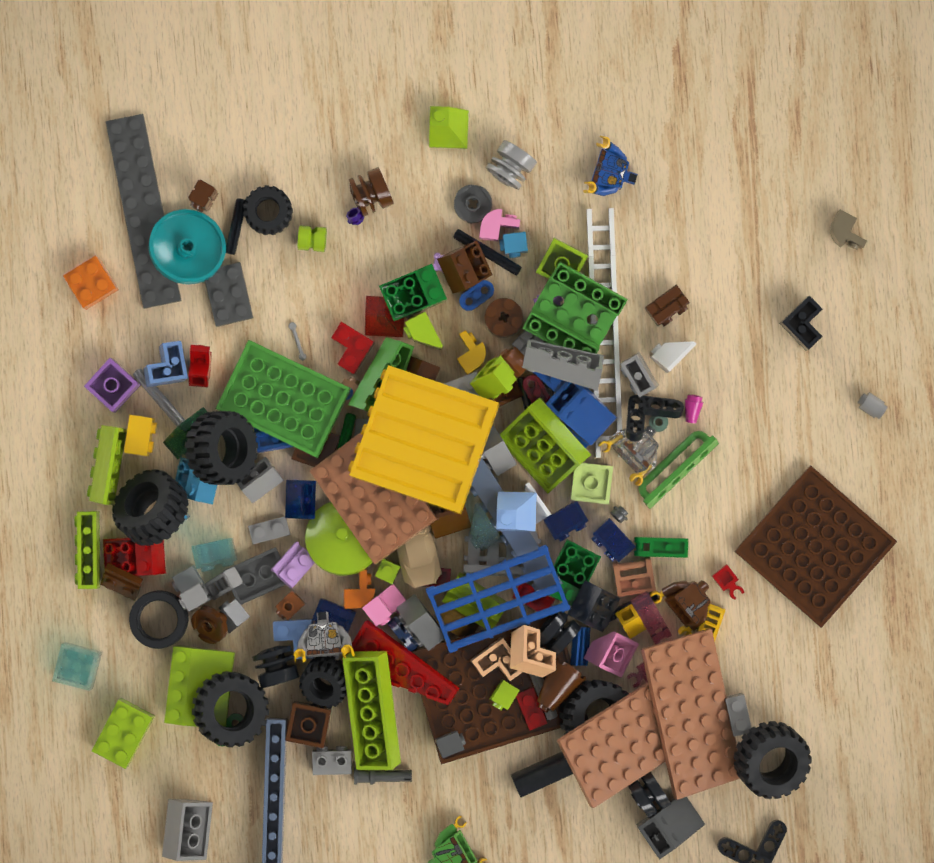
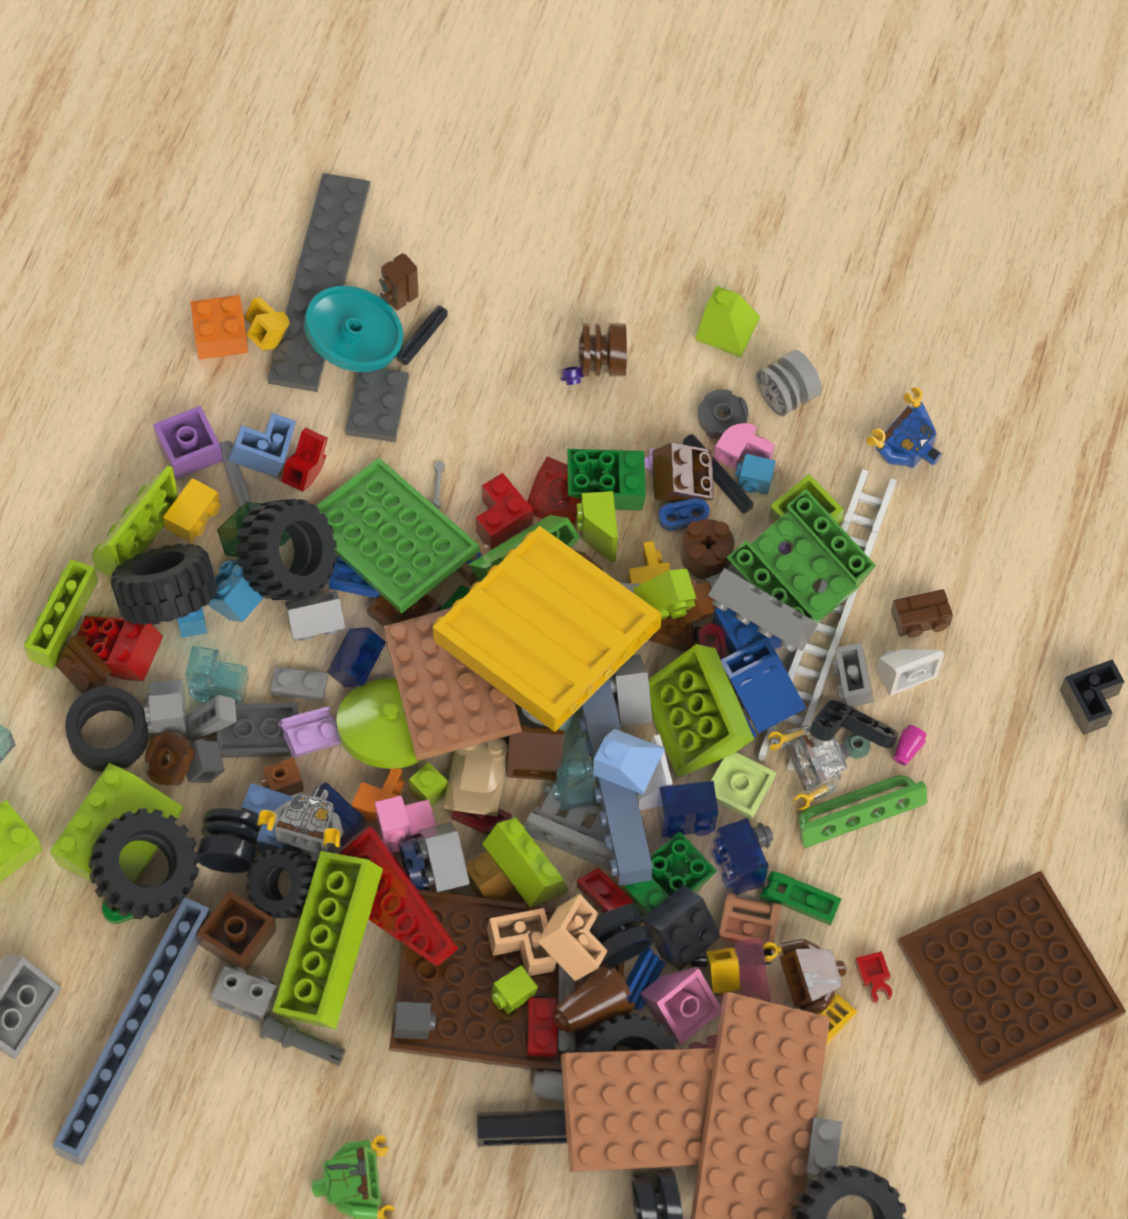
camera: 20 degrees right, 25 degrees down
(127, 269) = (266, 324): none -> yellow brick
(260, 195) = (464, 311): black tyre -> none
(312, 238) = (511, 378): lime wheel -> none
(512, 583) = (531, 841): blue door -> none
(549, 740) = (549, 1085): none -> light grey brick

